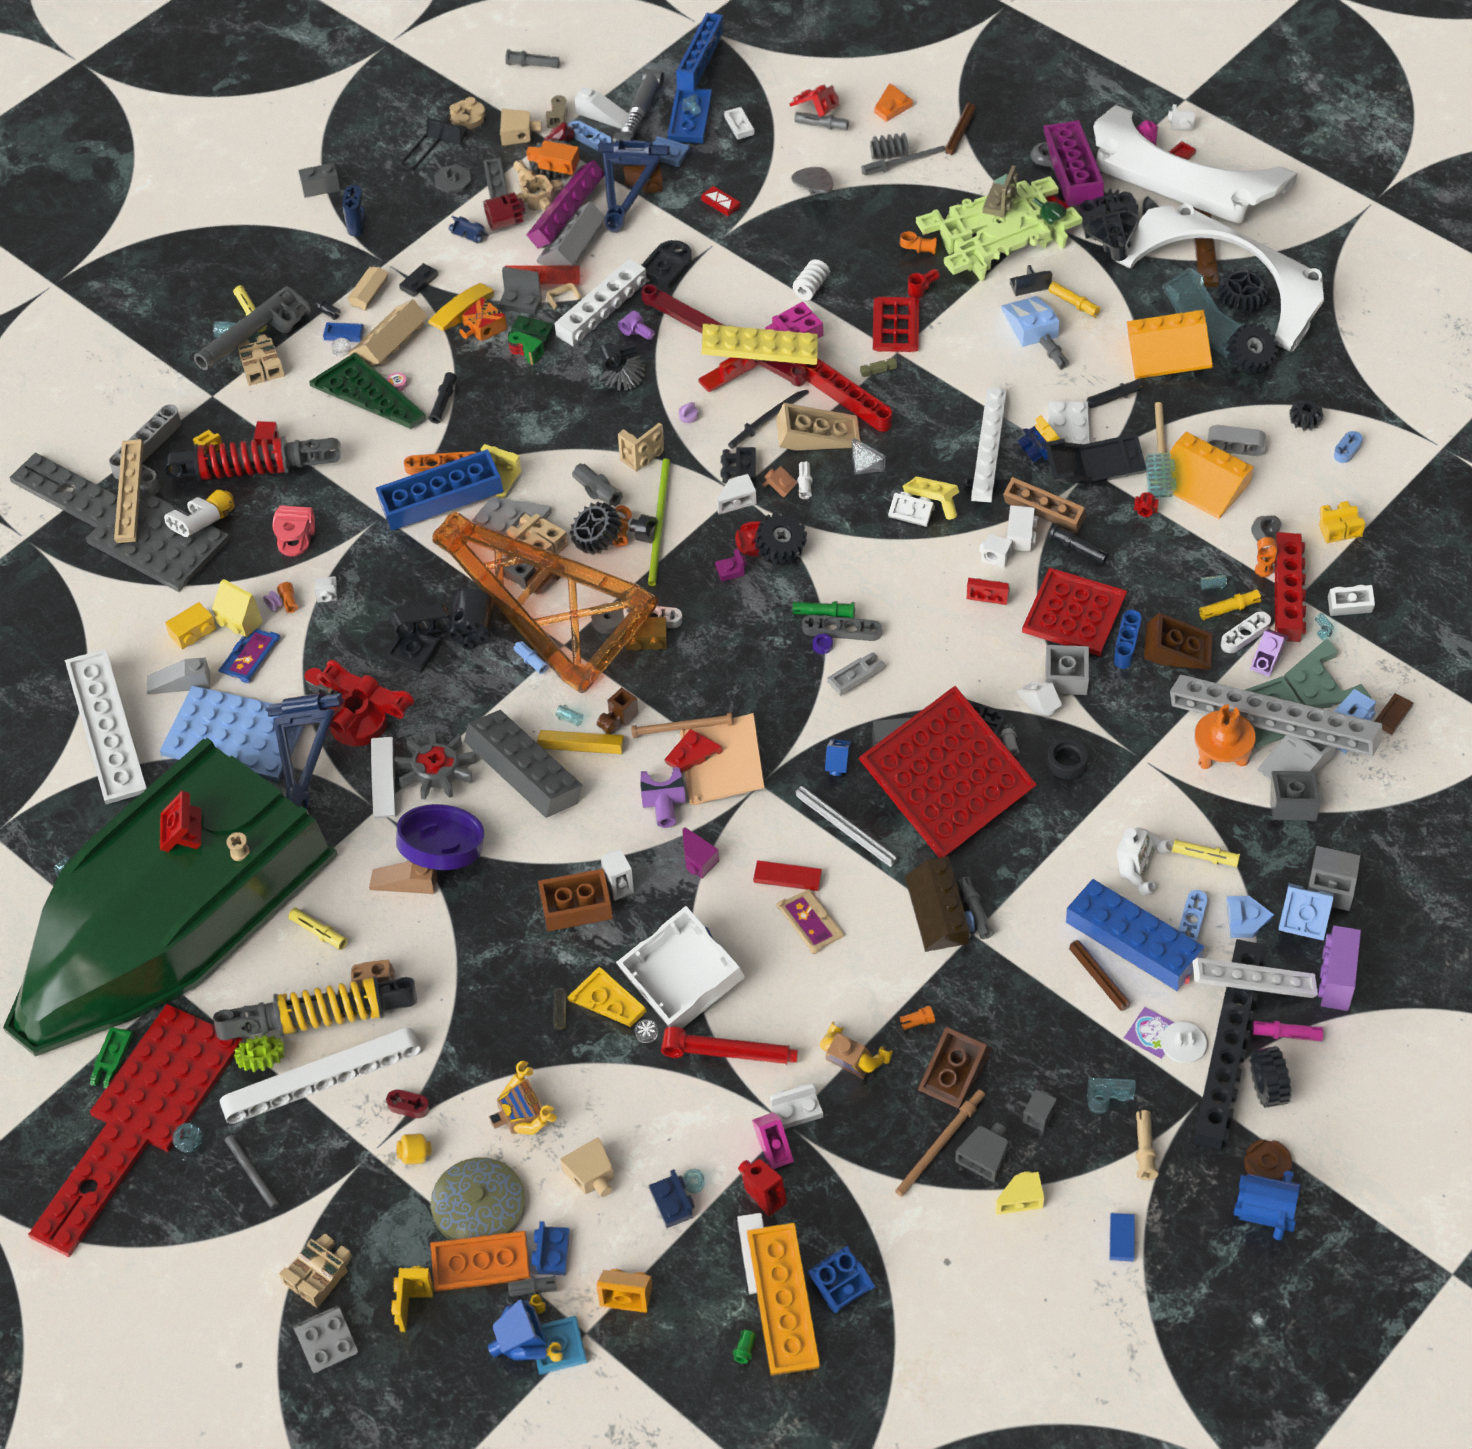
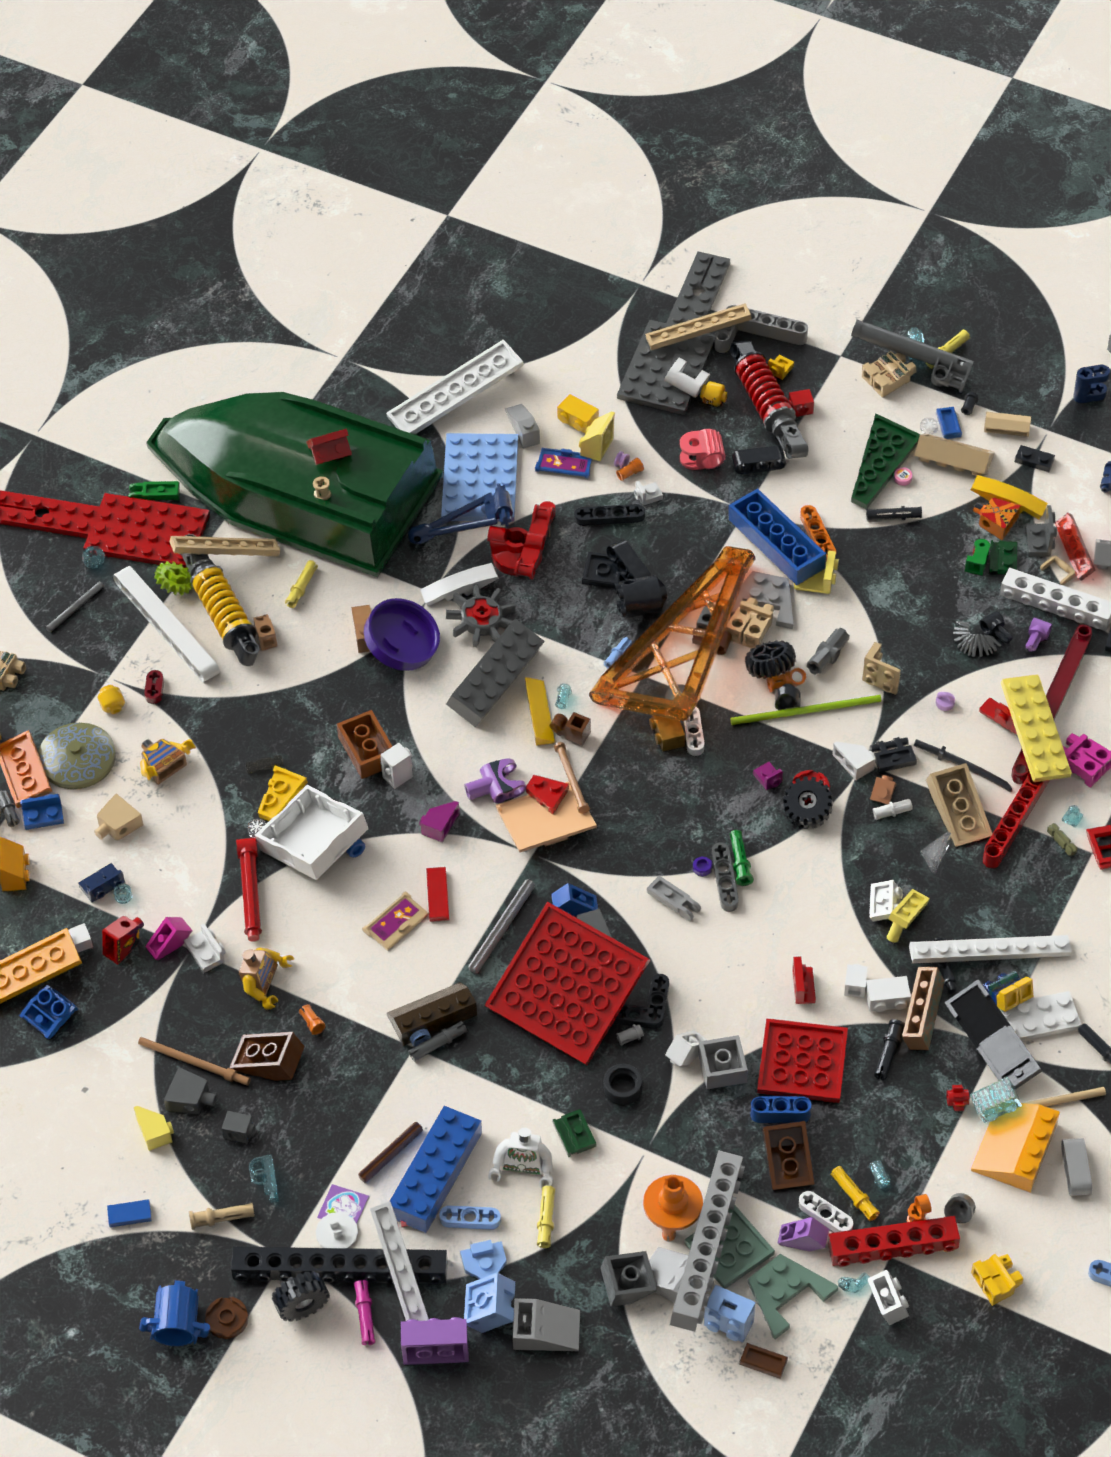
camera: 75 degrees right, 0 degrees up
(243, 986) = (224, 546): none -> tan plate
(325, 487) = (759, 459): none -> black beam
(343, 628) = (609, 512): none -> black beam
(854, 354) = (1072, 816): none -> clear light blue piece
(1114, 810) = (574, 1133): none -> dark green plate

